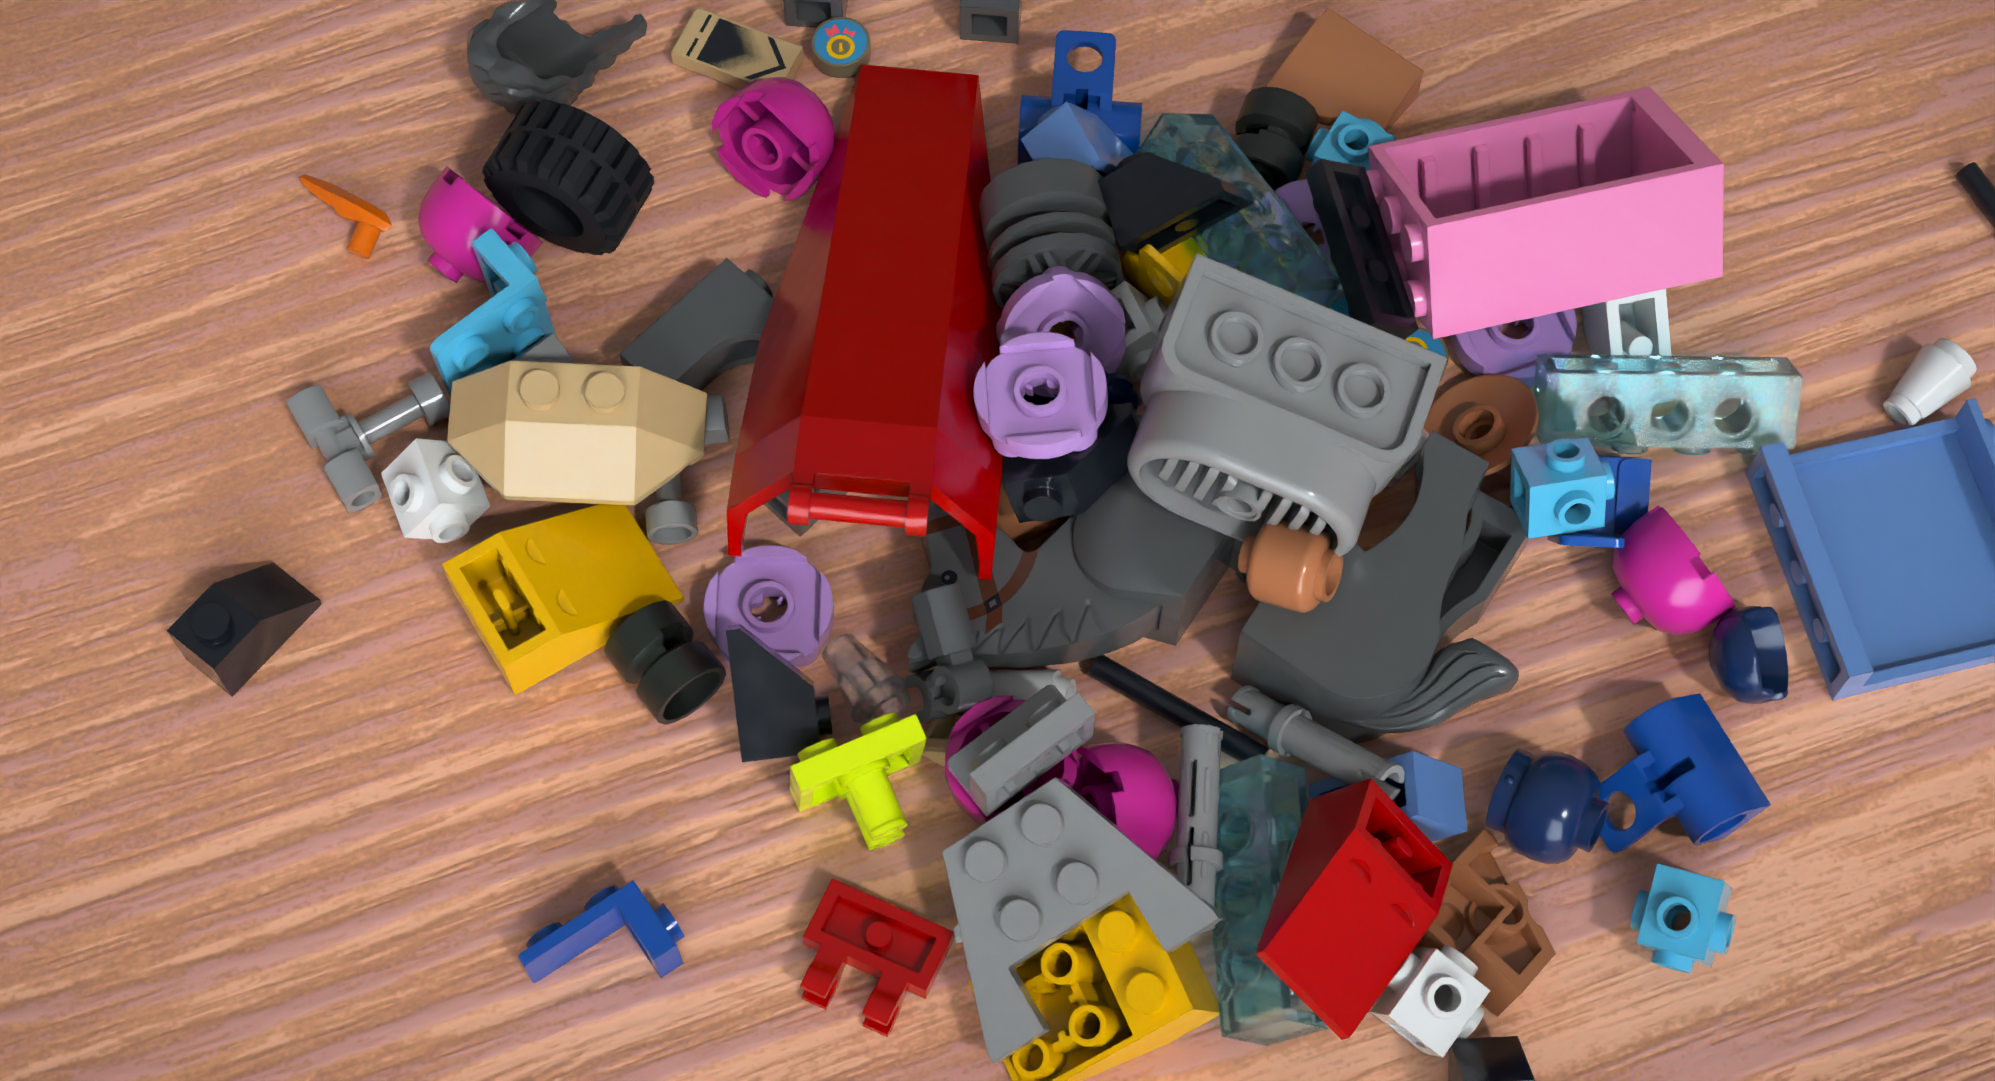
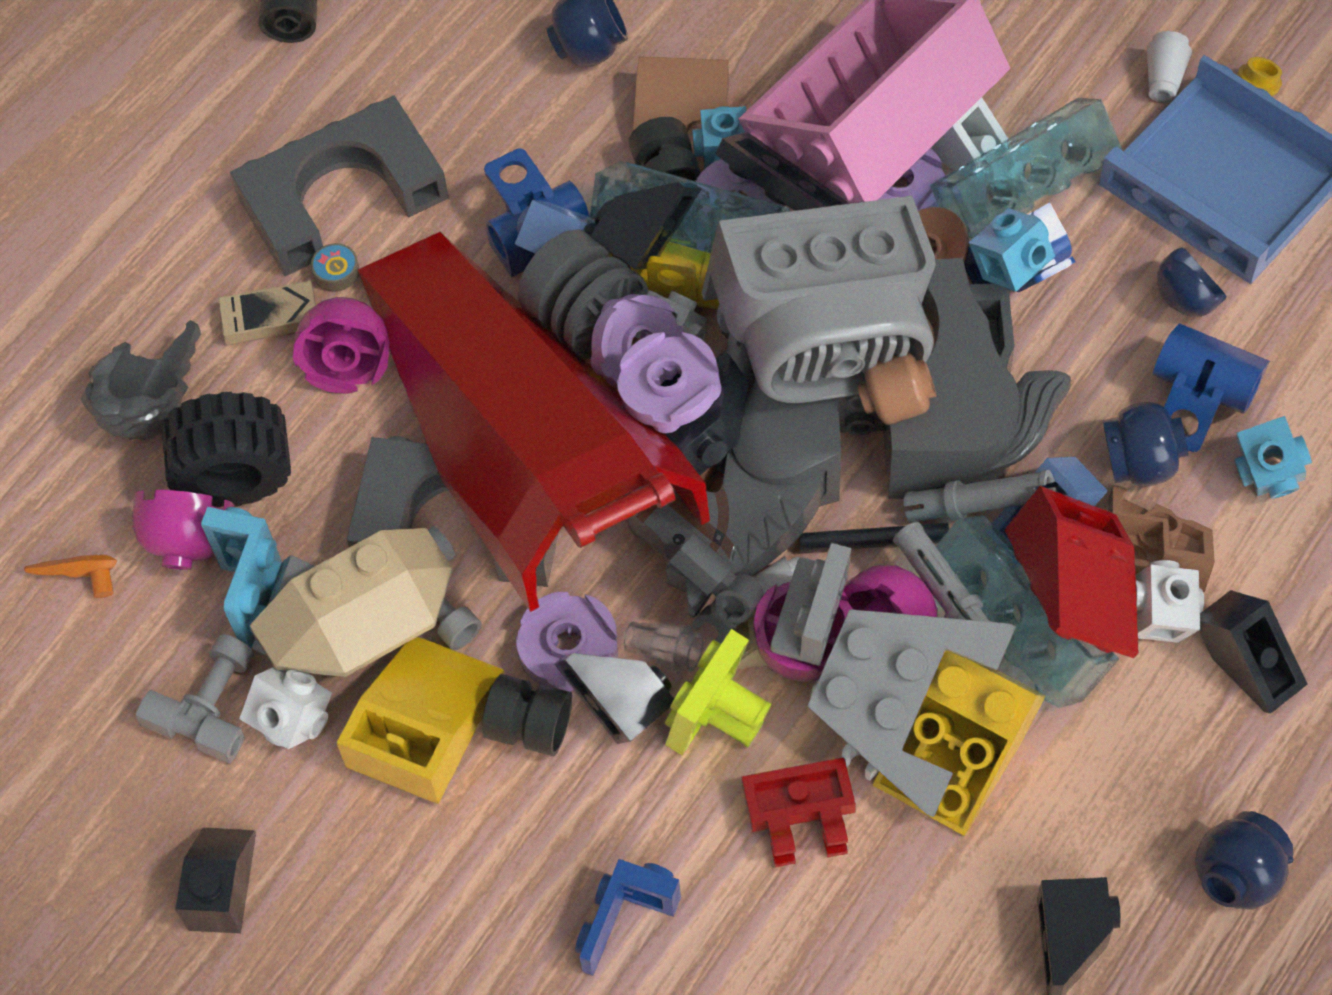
camera: 30 degrees left, 5 degrees down
(1666, 578) = (1108, 267): dark pink cylinder -> none

